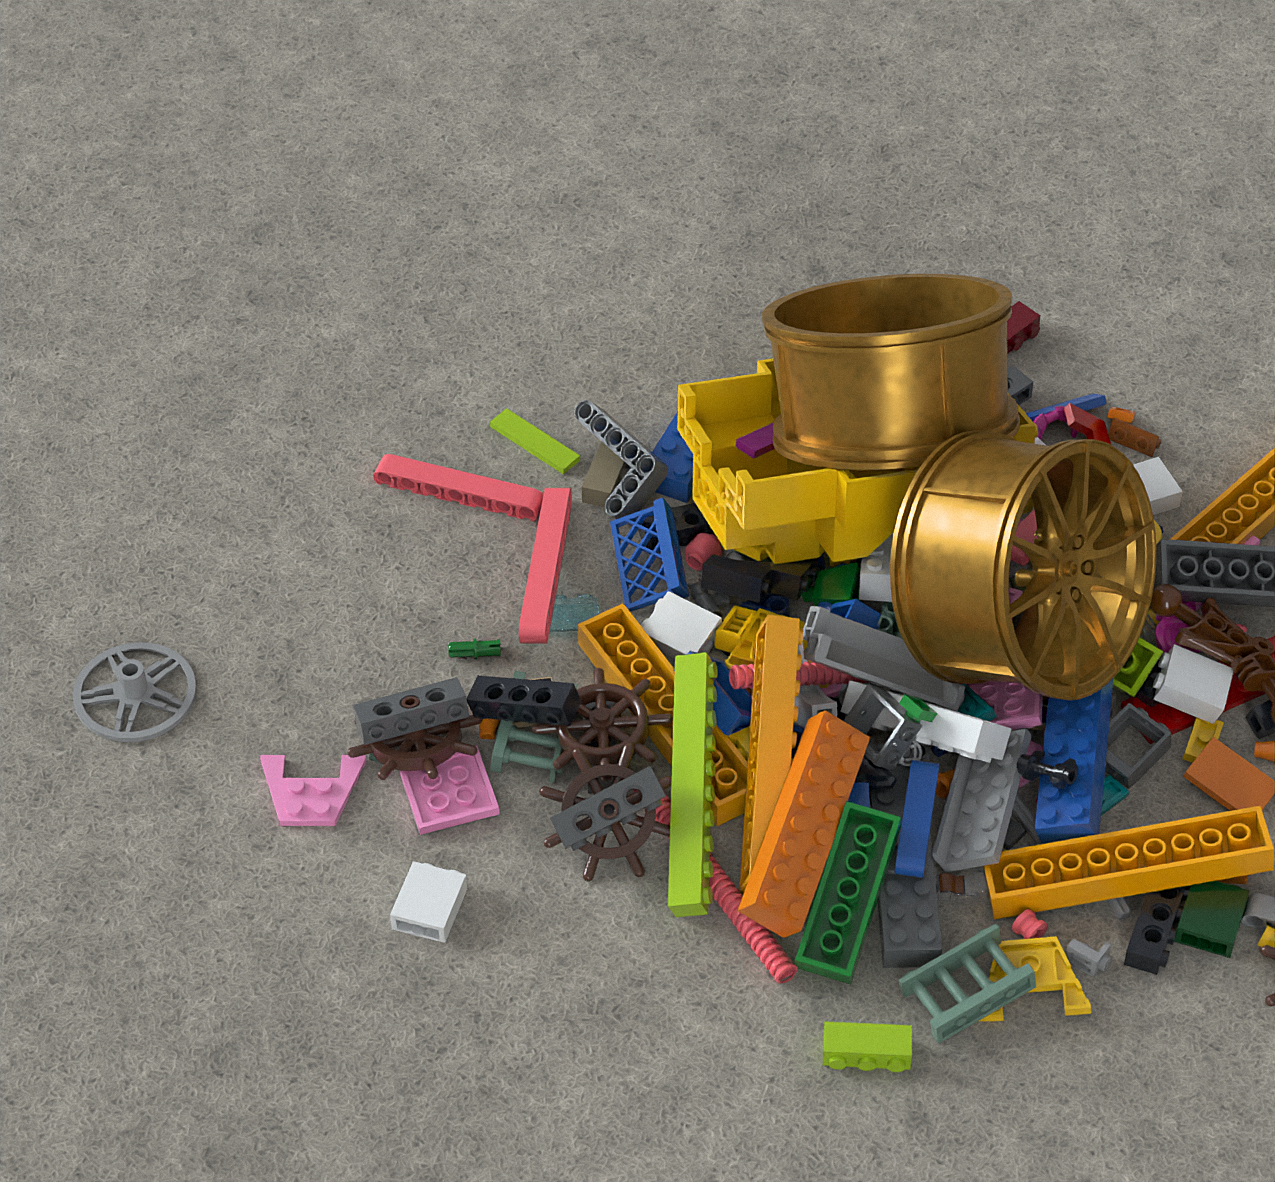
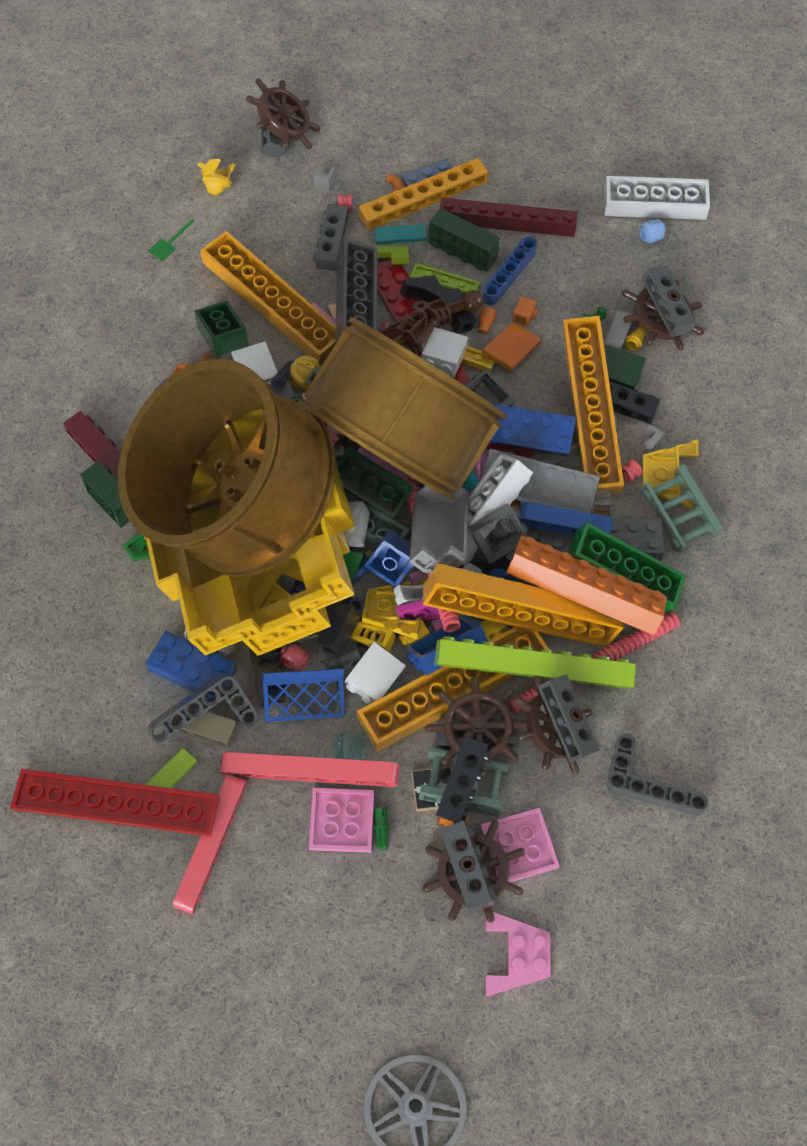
camera: 90 degrees left, 15 degrees up
(428, 901) = (624, 857): white brick -> none
(484, 608) = (341, 820): none -> bright pink plate
(506, 396) = (115, 802): none -> red plate
(547, 903) = (647, 785): none -> dark grey beam
(757, 442) = (237, 588): magenta tile -> none
(867, 1046) = (729, 572): lime brick -> none
(917, 709) = (497, 502): green plate -> none
(1060, 775) = (538, 428): black piece -> none
(1193, 441) = (221, 328): none -> dark green brick

